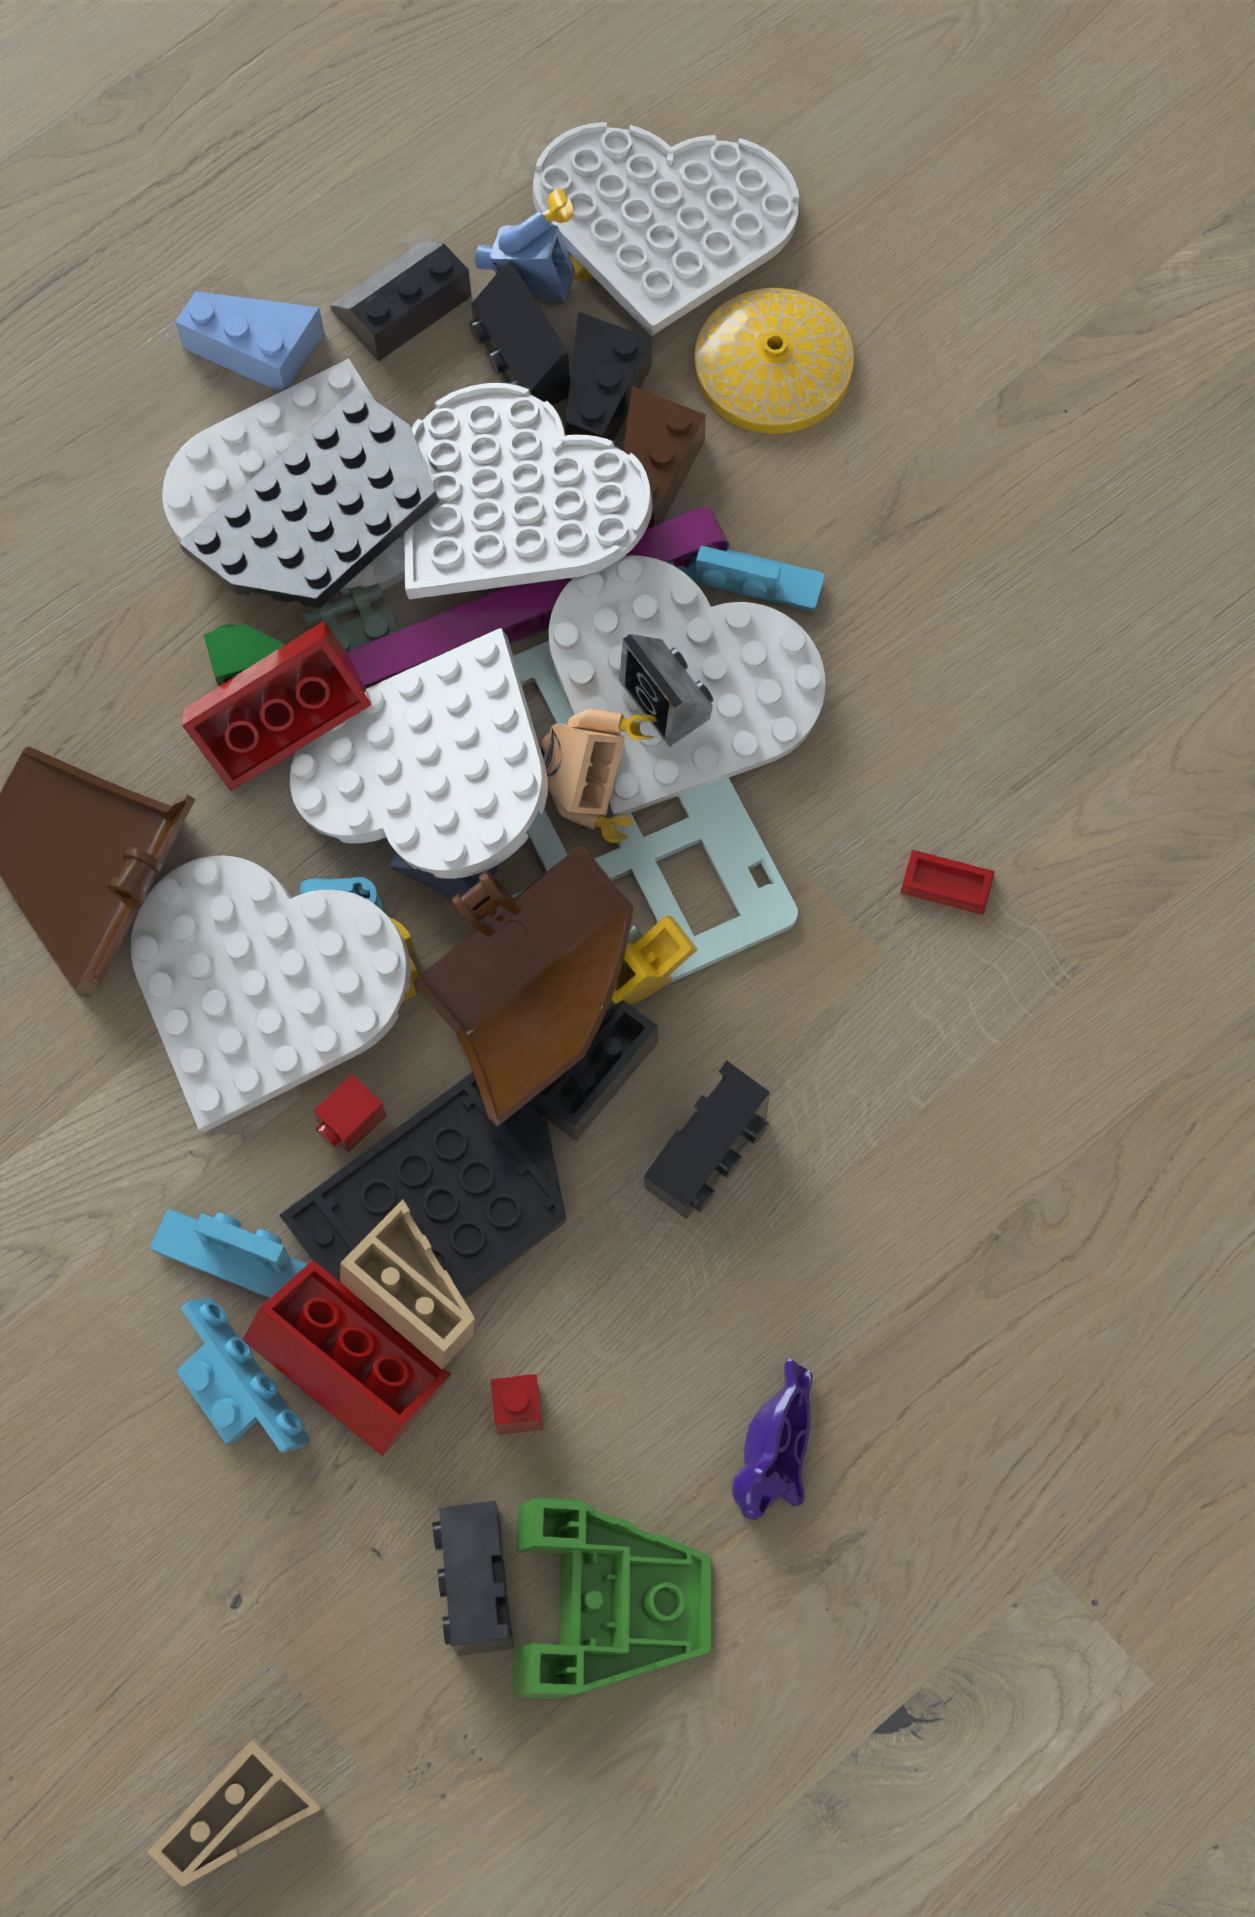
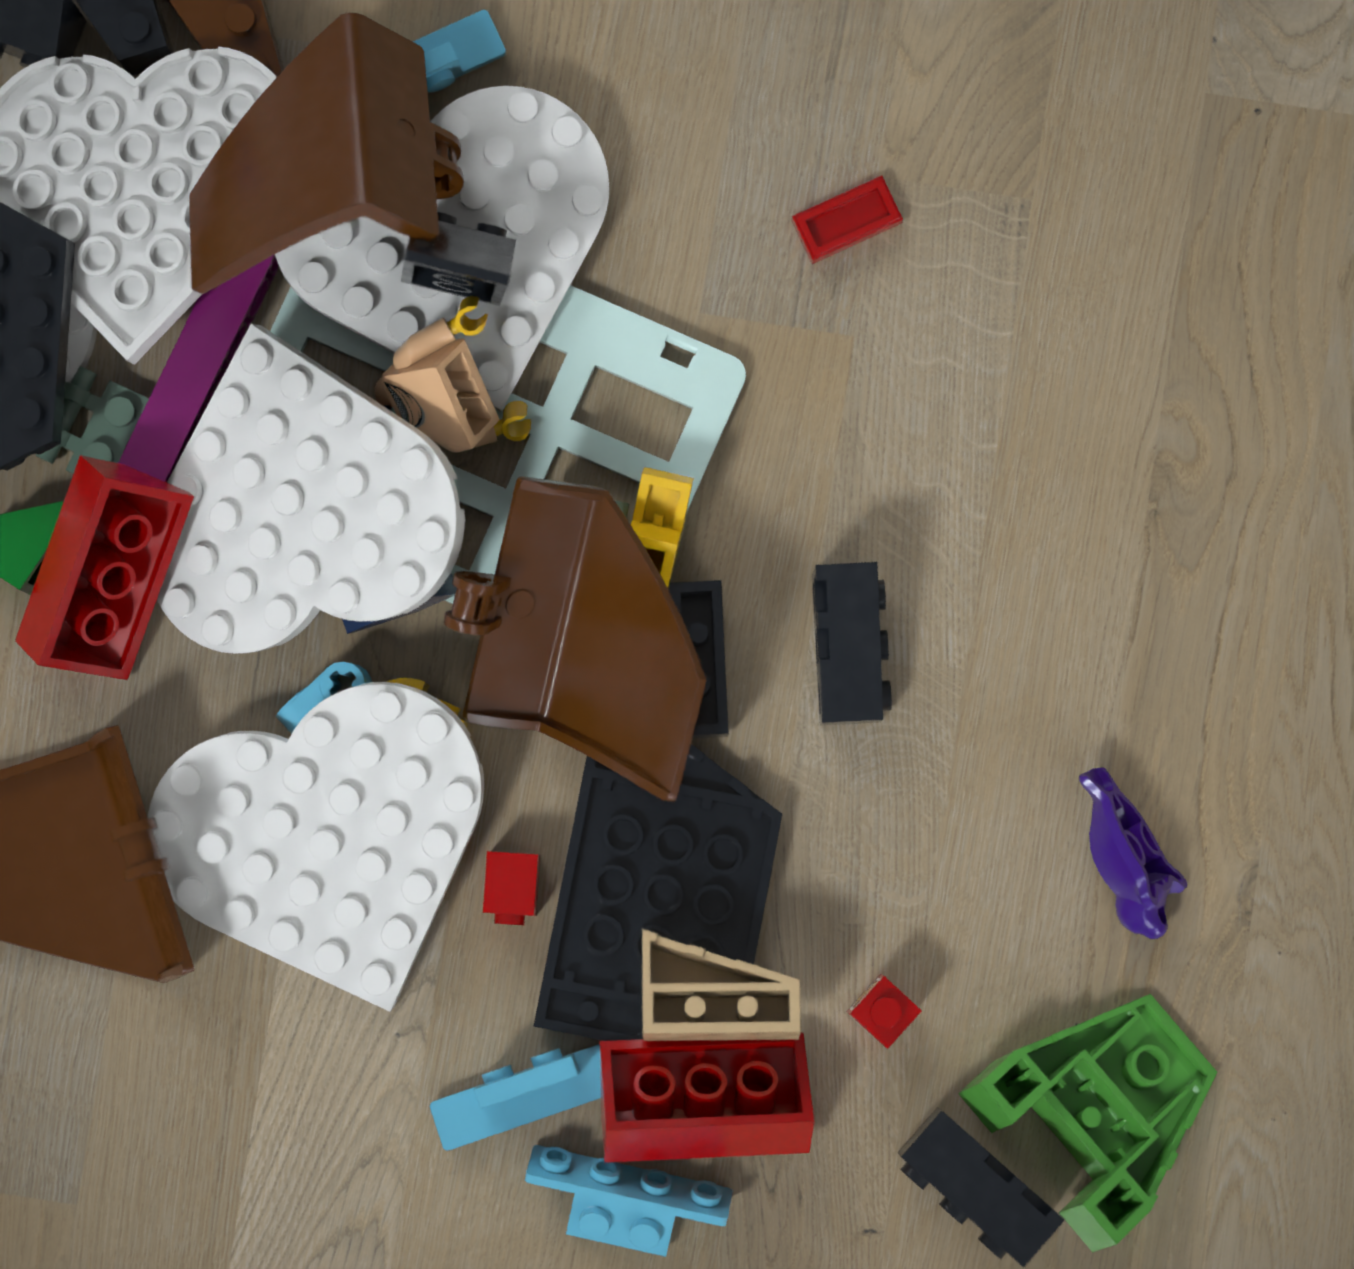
camera: 40 degrees left, 15 degrees up
(658, 548) = (323, 146): none -> reddish brown panel

